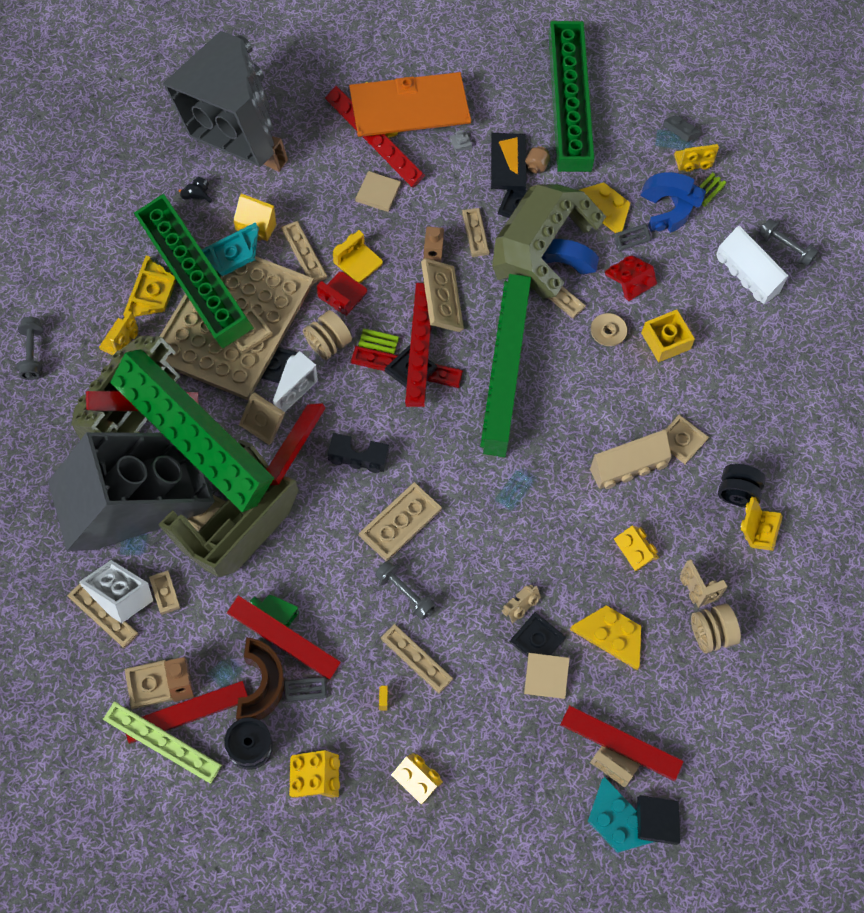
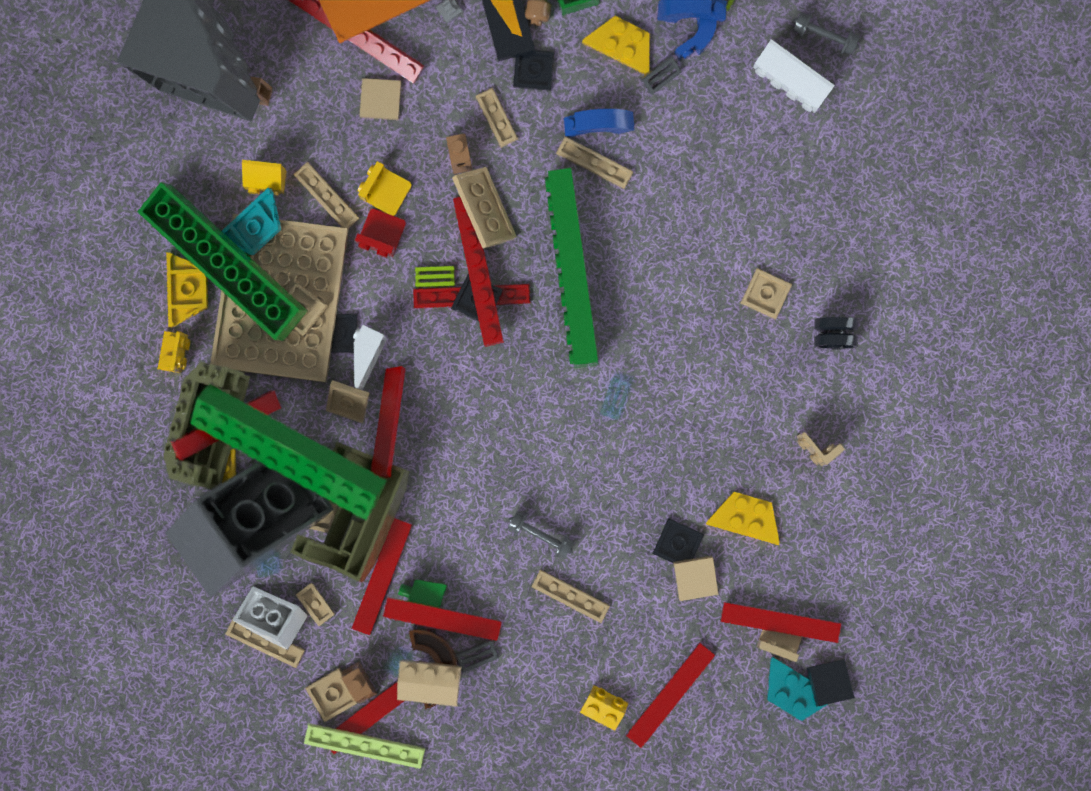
camera: 10 degrees left, 20 degrees up
(29, 368) = (81, 369): dark grey piece -> none
(196, 190) = (189, 158): black animal -> none
(237, 585) = (381, 577): none -> red tile
(241, 733) = (435, 735): black wheel -> none
(249, 689) = (428, 682): none -> tan slope
(314, 774) = (511, 733): yellow bracket -> none
(327, 335) = (382, 291): tan wheel -> none
(373, 458) = (435, 410): black arch -> none
(383, 694) = (551, 645): yellow tile -> none
(400, 521) = (515, 465): tan plate -> none
(488, 786) = (670, 695): none -> red tile
(527, 597) = (650, 521): tan hinge -> none
(533, 228) = (560, 107): olive wedge -> none
(611, 323) = (665, 184): tan dish -> none
(631, 460) = (722, 336): tan slope -> none
(633, 275) = (672, 122): red bracket -> none
(636, 547) = (749, 424): yellow bracket -> none
(667, 335) = (725, 185): yellow brick -> none
(716, 628) = (843, 487): tan wheel -> none
(760, 526) = (863, 368): yellow bracket -> none

